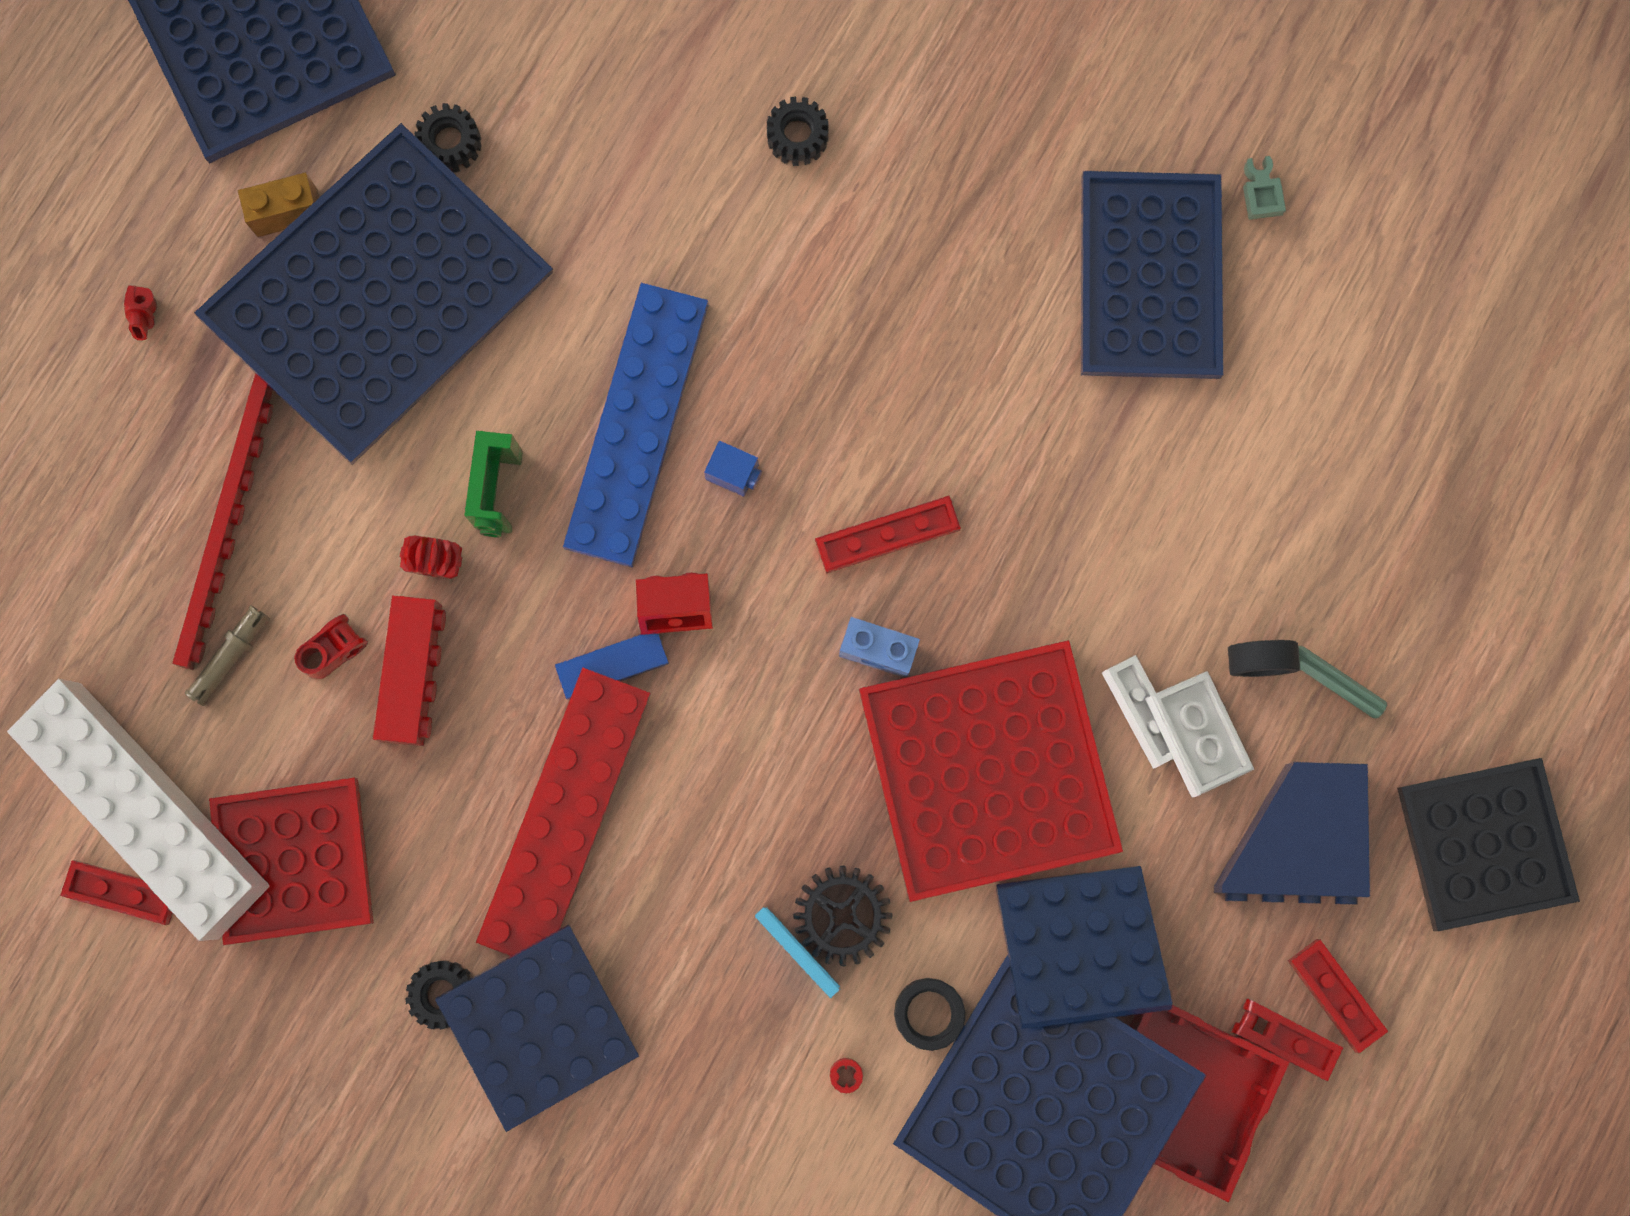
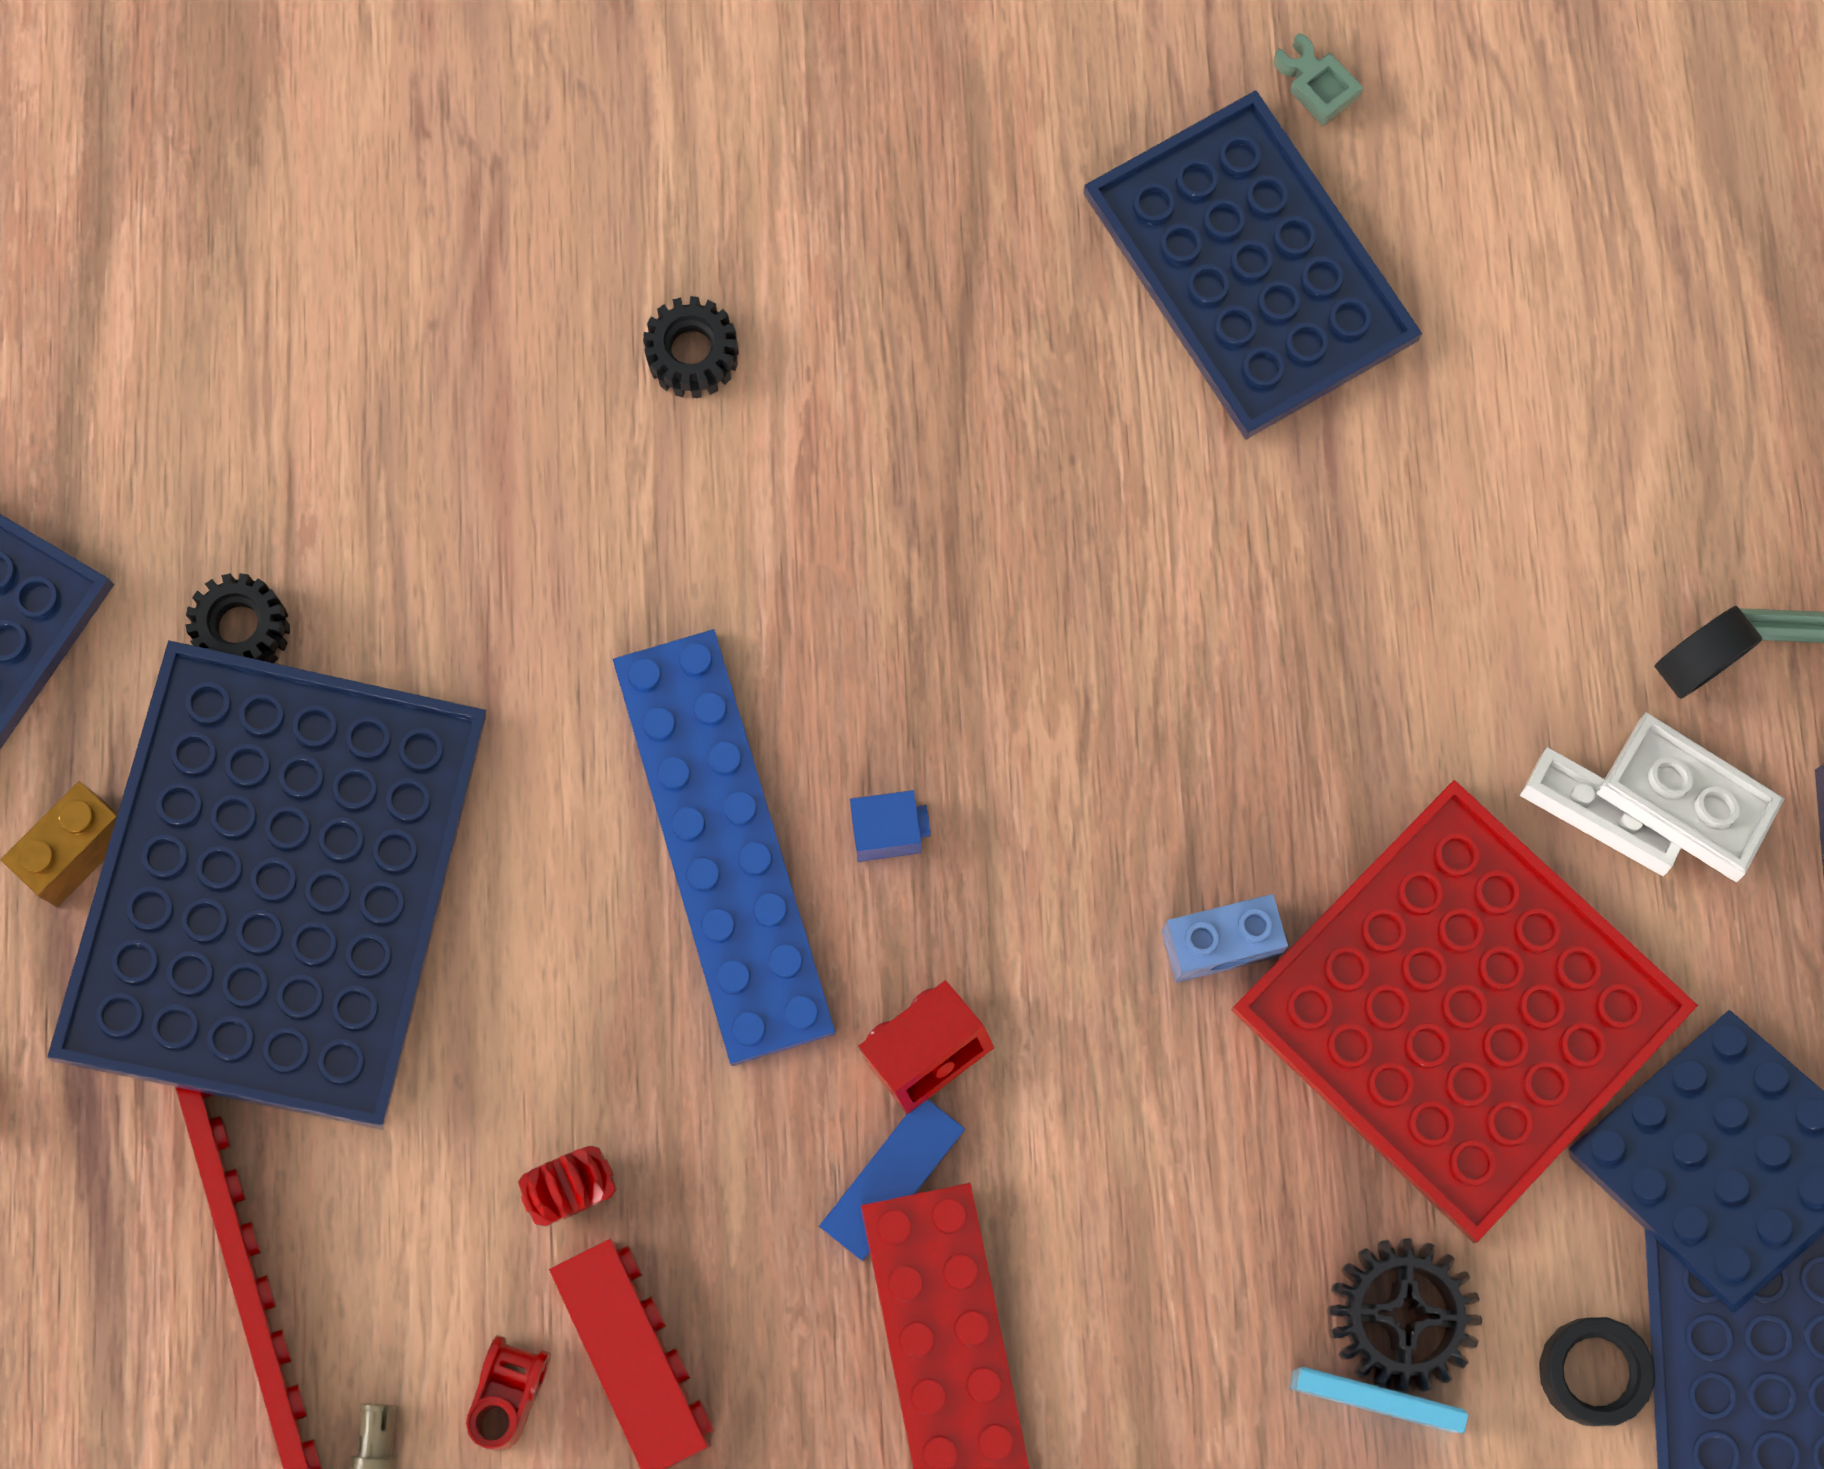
camera: 30 degrees left, 5 degrees down
(488, 453) = (559, 993): green panel -> none
(887, 534) = (1136, 788): red tile -> none

